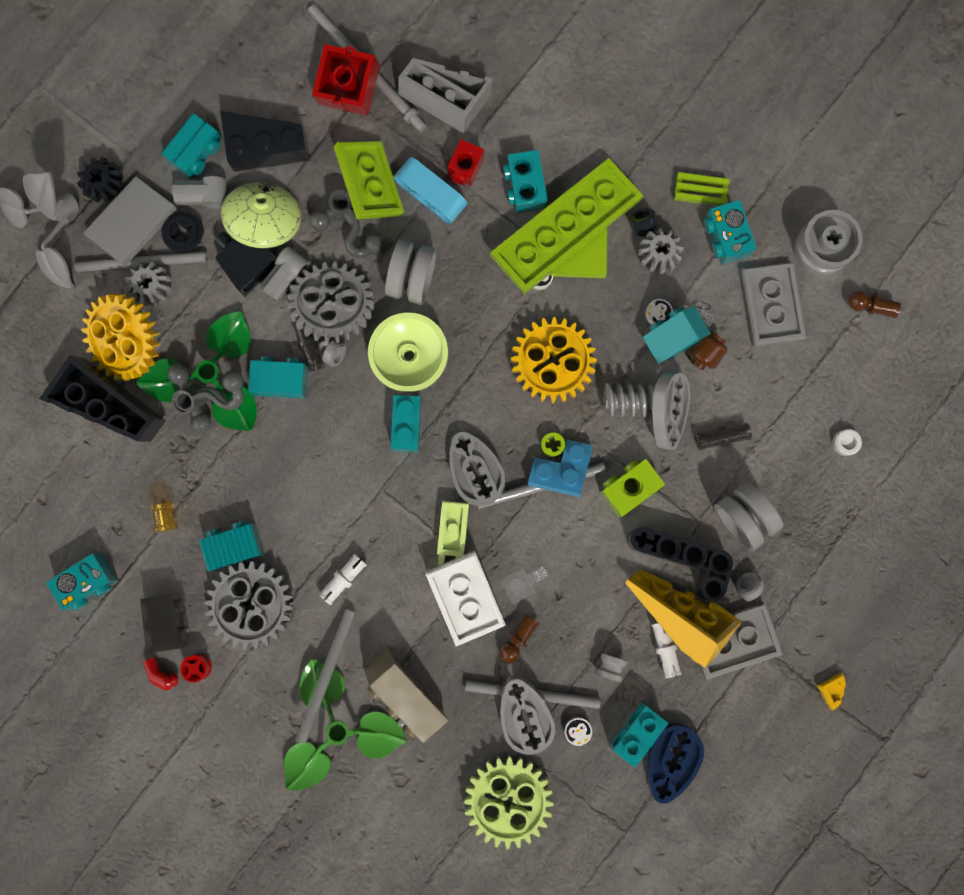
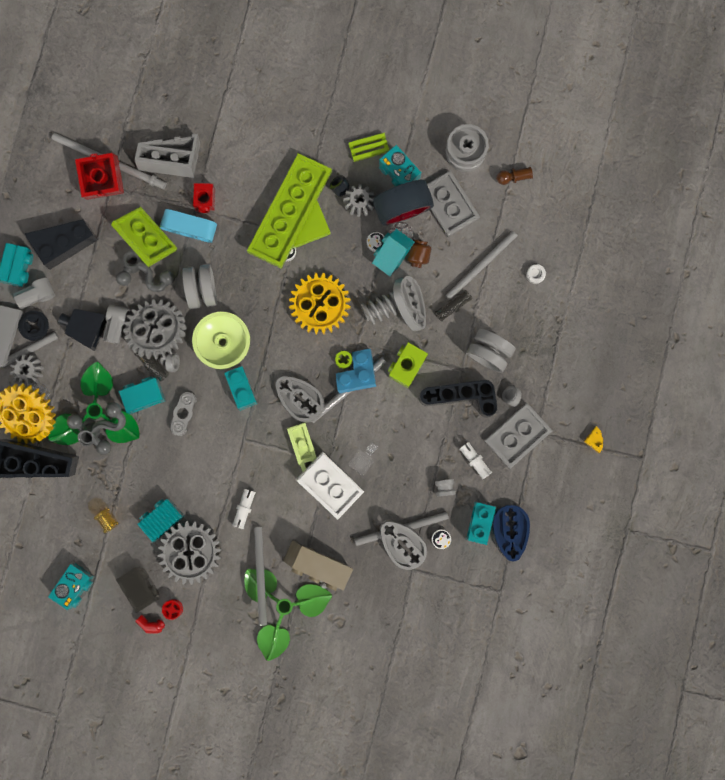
camera: 25 degrees left, 0 degrees up
(258, 223) = (85, 297): yellowish green dish -> none
(307, 437) = (179, 425): none -> light grey piece
(500, 826) = (417, 622): yellowish green gear -> none
(510, 651) = (374, 507): reddish brown pin -> none
(530, 181) = (253, 190): teal brick -> none
(693, 625) = (485, 437): yellow wedge -> none
(718, 276) = (403, 202): none -> black wheel
(781, 400) = (481, 265): none -> light grey piece

